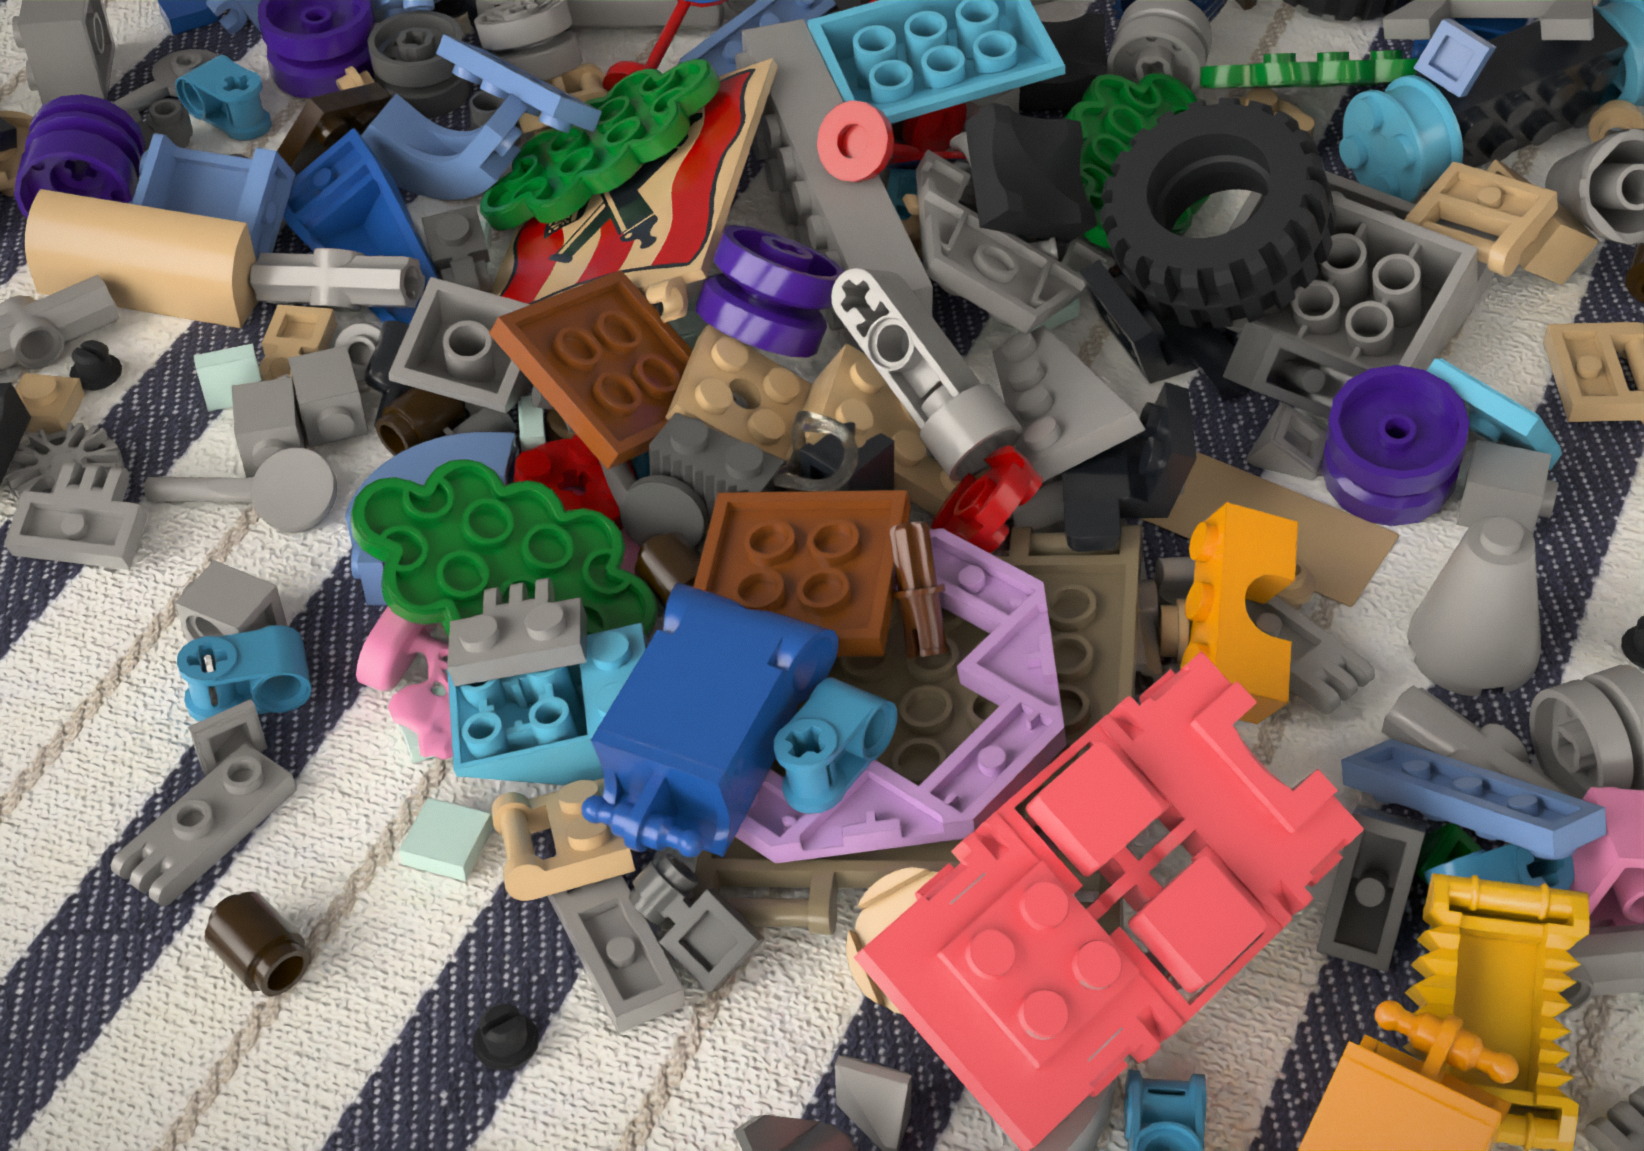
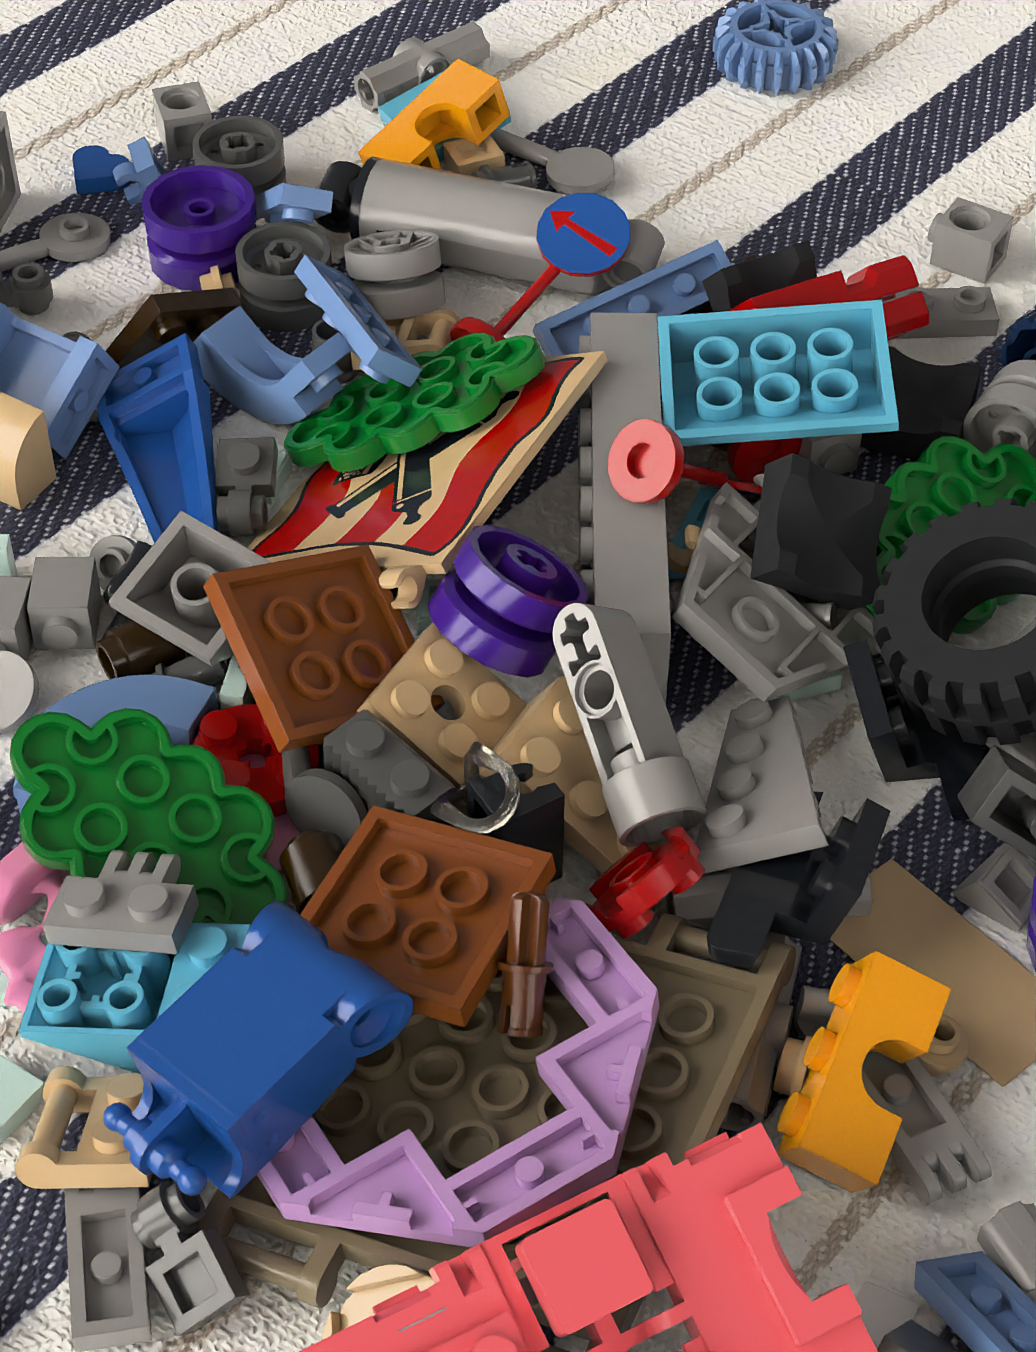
camera: 15 degrees right, 0 degrees up
(225, 98) = (94, 272): dark azure piece -> none
(295, 333) = (59, 532): tan plate -> none
(337, 280) = (117, 484): light grey piece -> none
(832, 744) = (378, 1104): dark azure piece -> none

